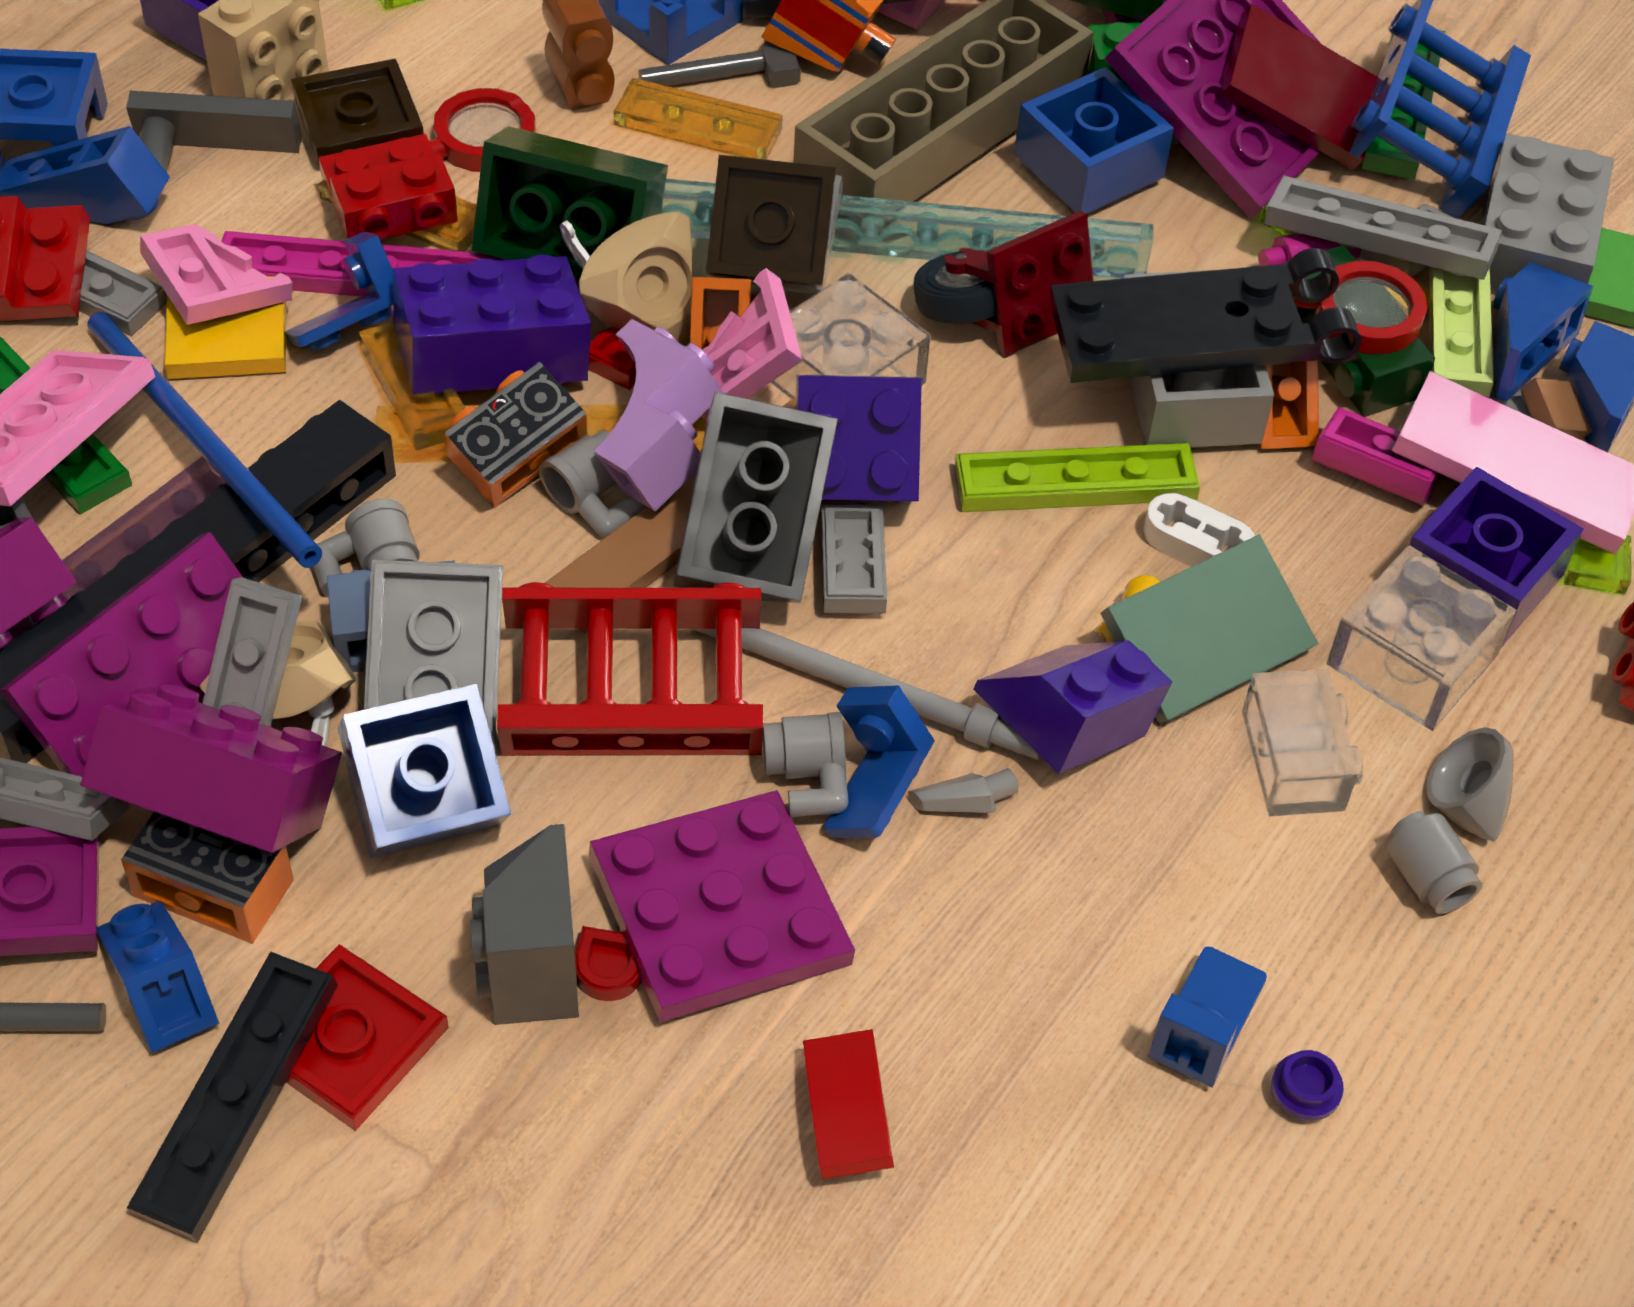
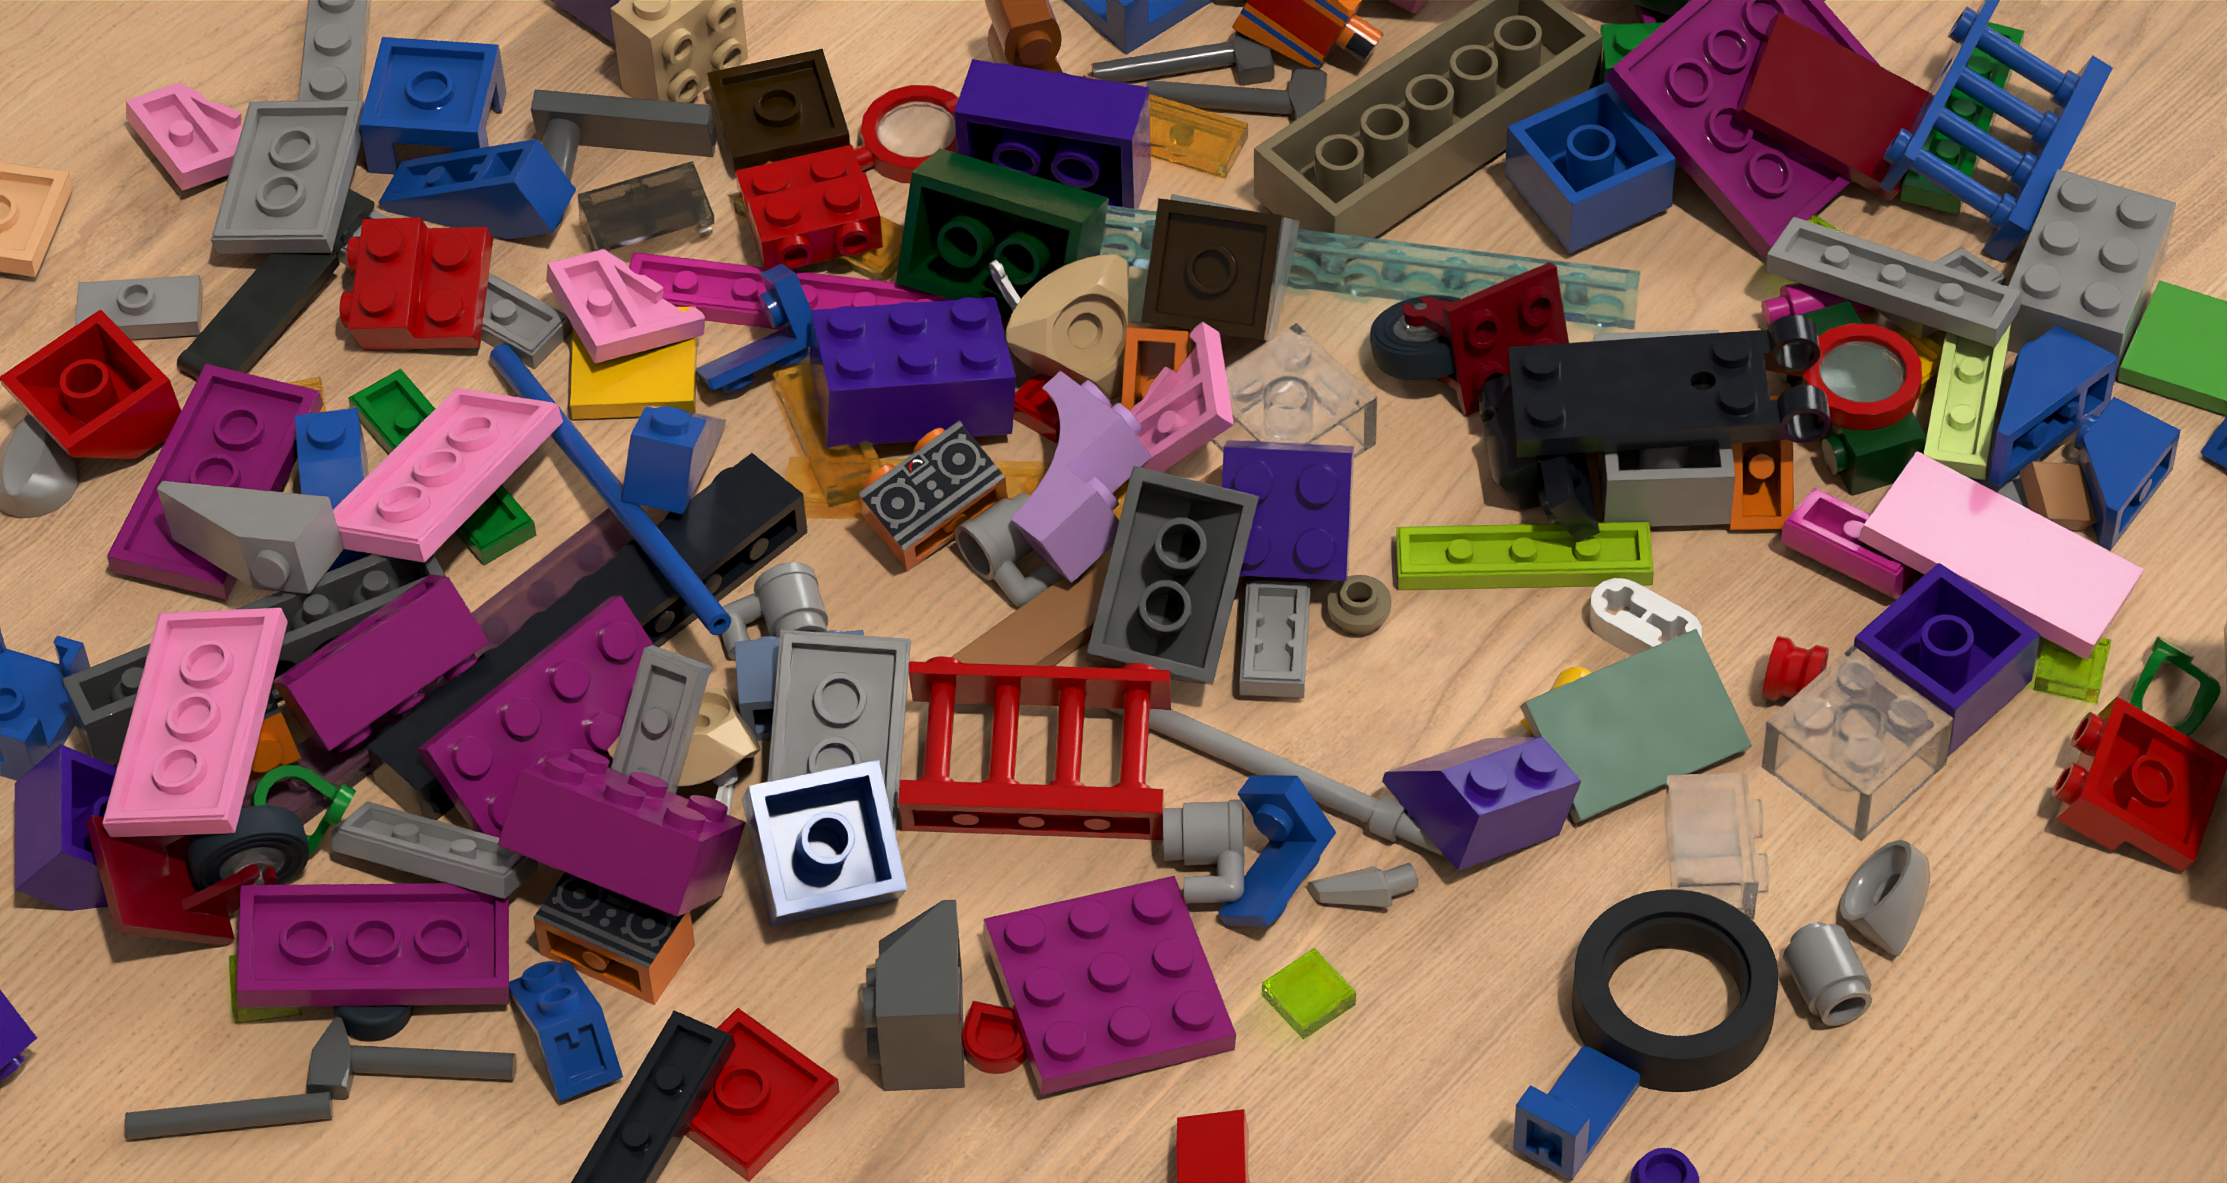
camera: 10 degrees right, 0 degrees up
(235, 189) = (645, 208): none -> clear smoke hinge
(257, 402) = (669, 456): none -> blue slope
(615, 108) = (1058, 128): none -> dark purple brick
(828, 88) = (1305, 93): none -> dark grey piece
(922, 903) = (1308, 993): none -> clear neon green tile
(928, 525) = (1359, 617): none -> dark tan plate
(1080, 405) = (1552, 481): none -> black plate
(1310, 820) = (1680, 920): none -> black tyre
(1348, 572) = (1792, 668): none -> red wheel

